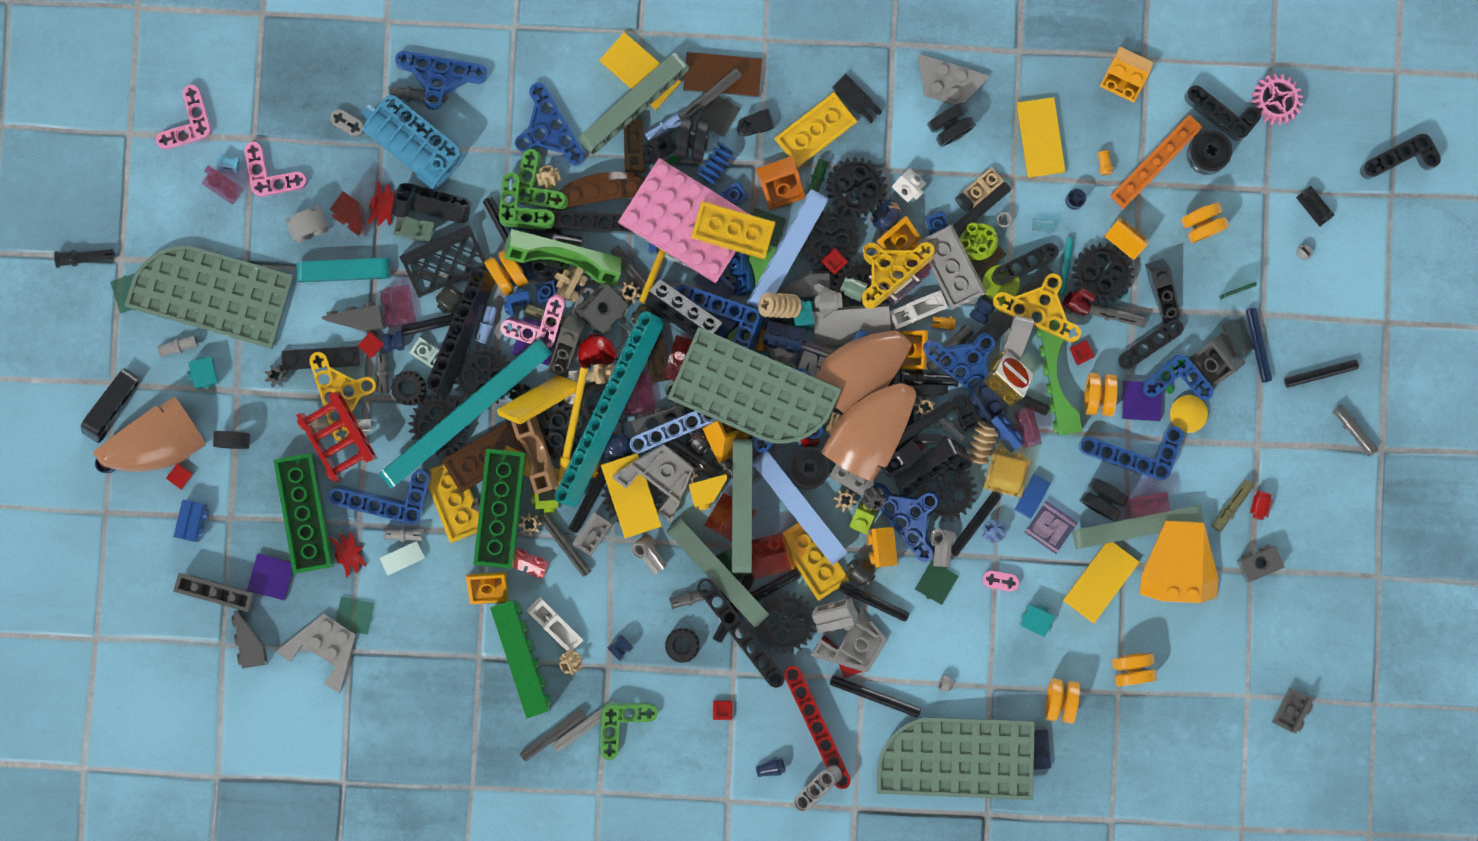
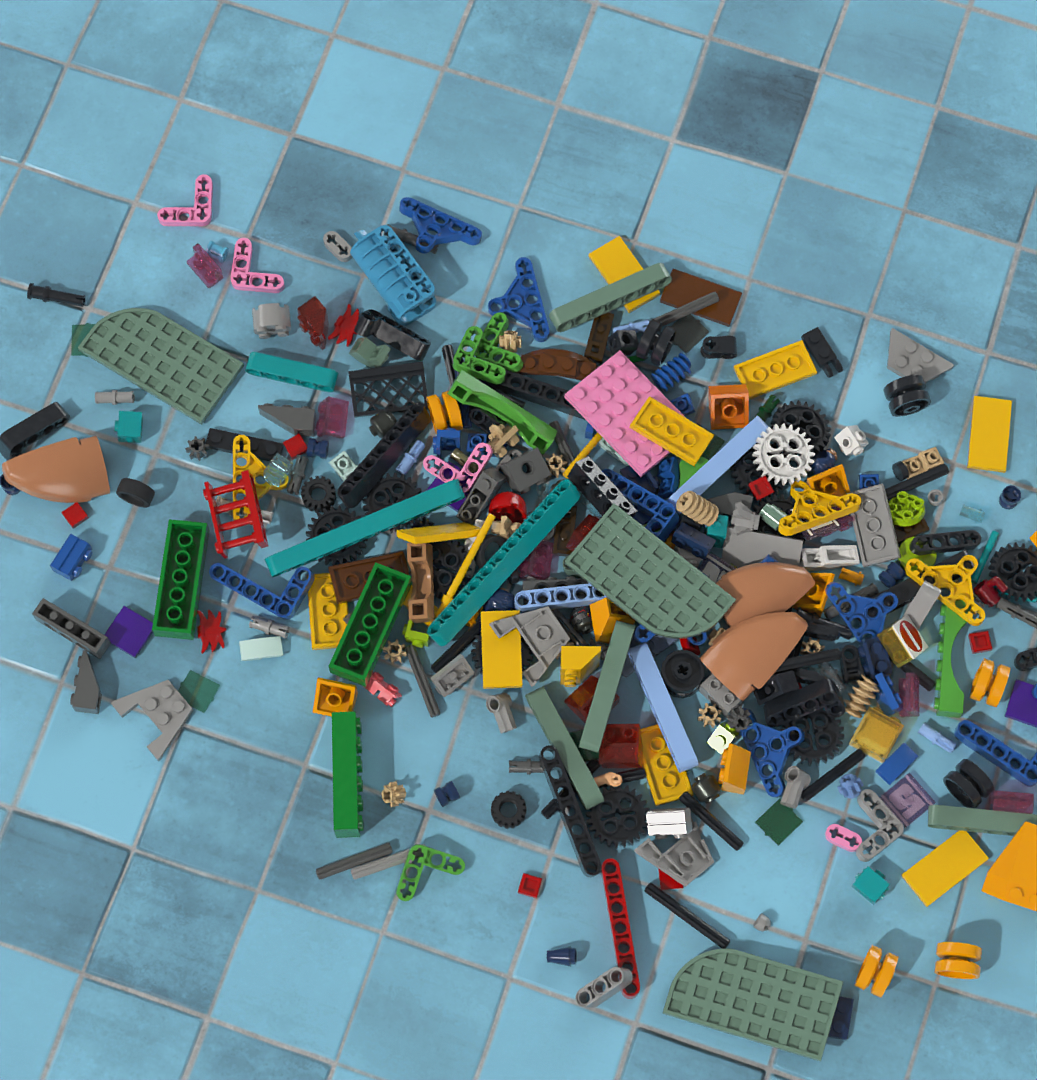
camera: 15 degrees right, 15 degrees down
(362, 380) = (277, 470): none -> clear light blue brick
(426, 325) = (353, 443): black axle -> none
(554, 624) = (389, 754): white slope -> none
(767, 590) = (608, 778): none -> light nougat arm
(843, 206) = (782, 438): none -> white gear
(1035, 558) = (883, 824): none -> light grey beam
(1063, 459) = (937, 738): none -> light blue axle

